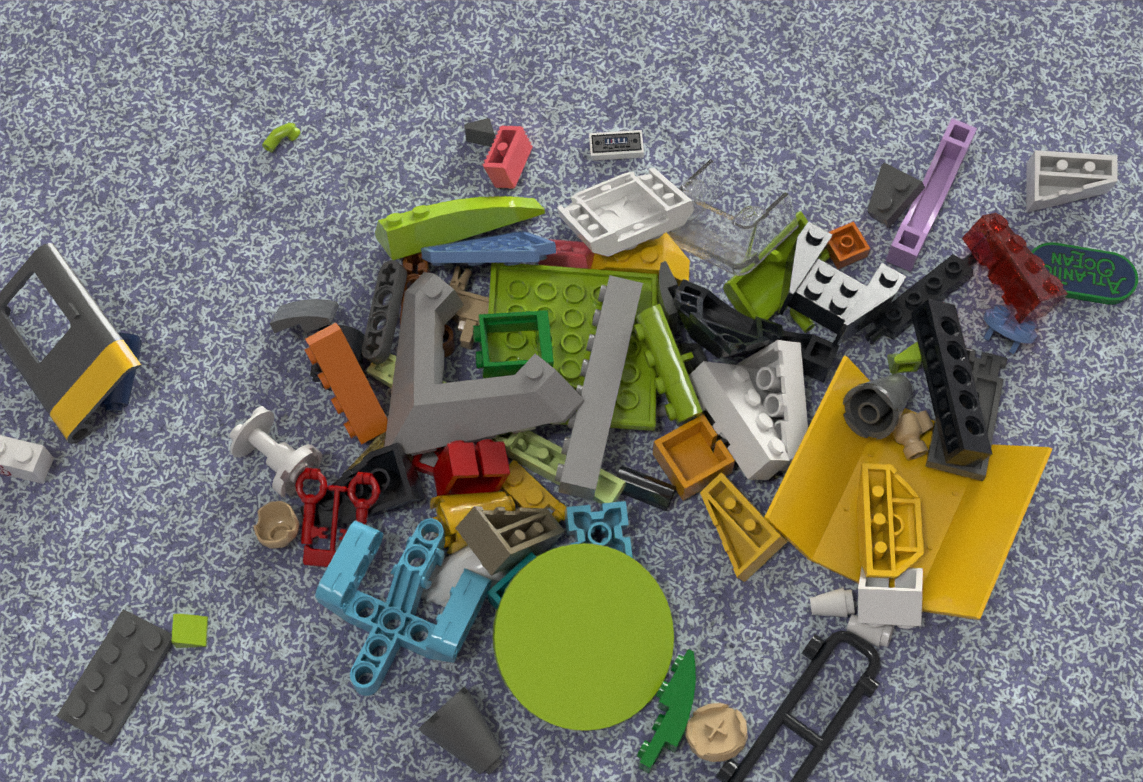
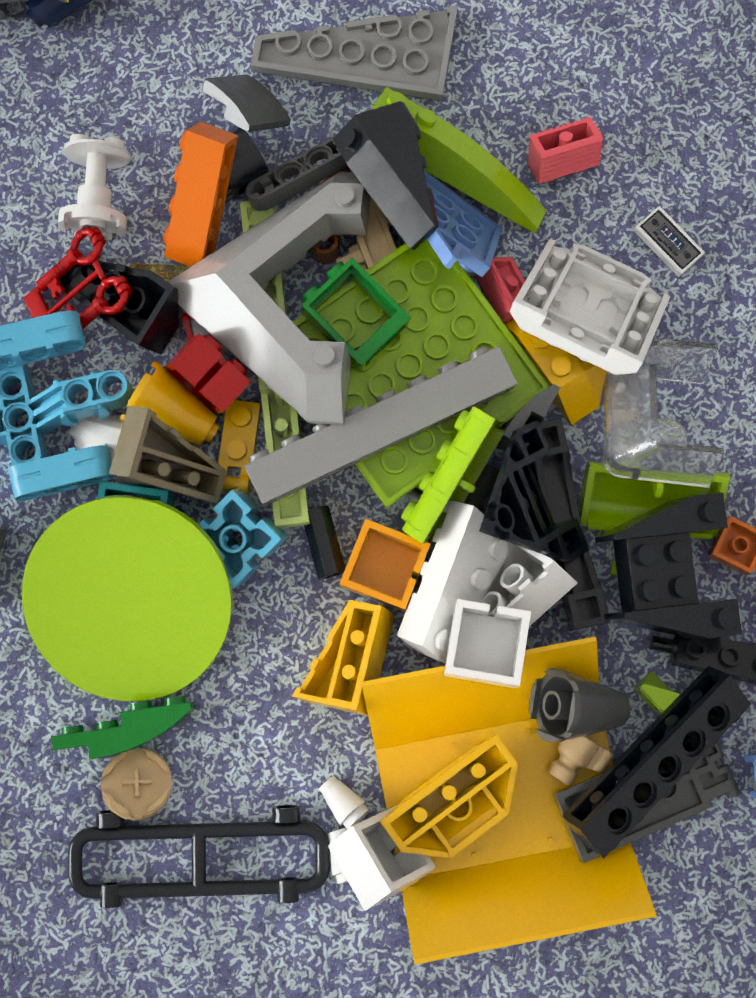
camera: 55 degrees right, 15 degrees up
(276, 525) = (33, 247): tan hair -> none
(334, 225) = (367, 54): none -> light grey wing
(434, 247) = (387, 161): none -> black wedge
(480, 132) = (573, 103): dark grey slope -> none
(805, 416) = (487, 646): none -> white piece

